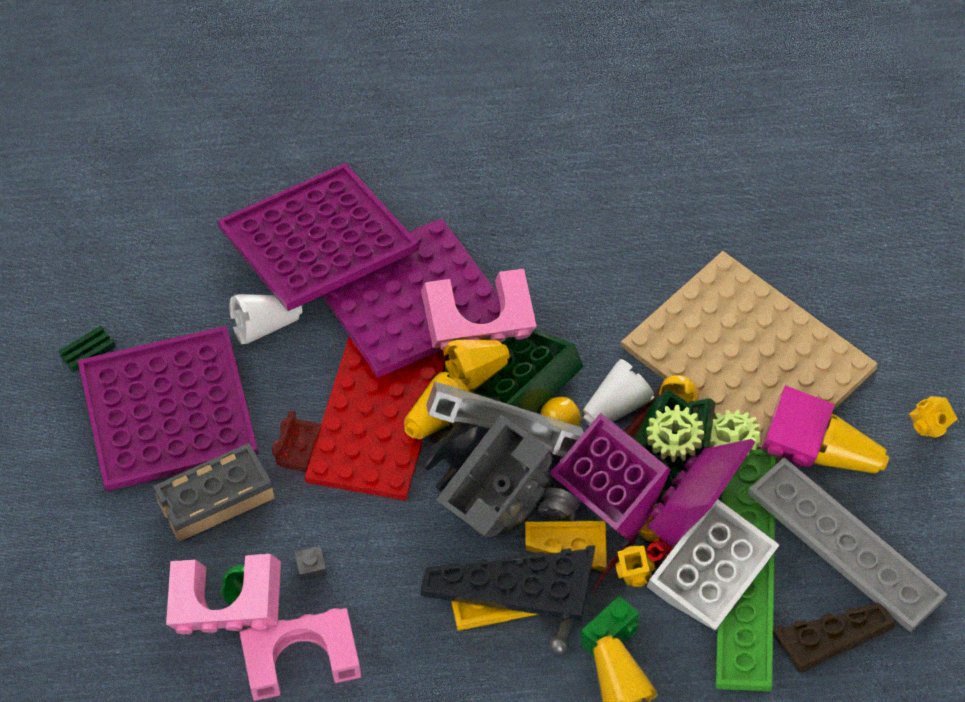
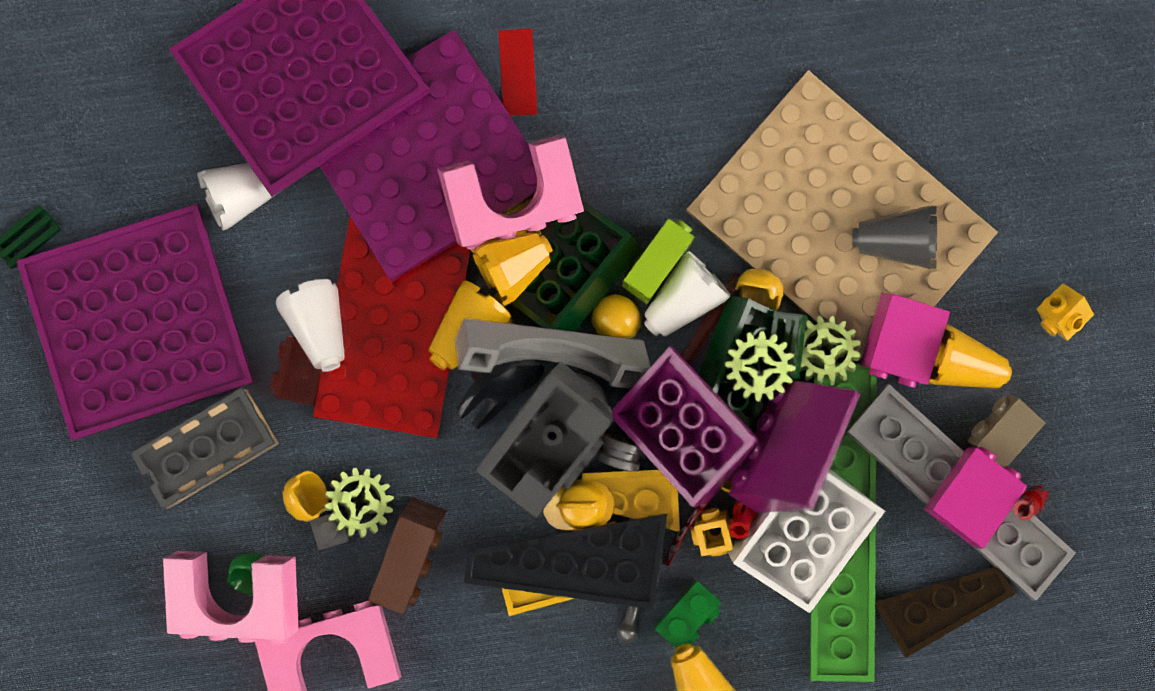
camera: 10 degrees left, 30 degrees up
(292, 531) = (305, 496): none -> yellow hair
(312, 397) = (315, 321): none -> white cone
(348, 536) = (372, 505): none -> yellowish green gear
(374, 576) = (408, 556): none -> reddish brown wedge
(490, 248) = (518, 71): none -> red sticker
(520, 540) = (580, 506): none -> yellow piece
(593, 366) = (658, 260): none -> lime brick
(794, 353) = (900, 237): none -> dark grey cone
(856, 538) = (976, 496): none -> dark pink brick
(884, 500) = (1006, 429): none -> dark tan brick
(905, 549) = (1031, 502): none -> red pin

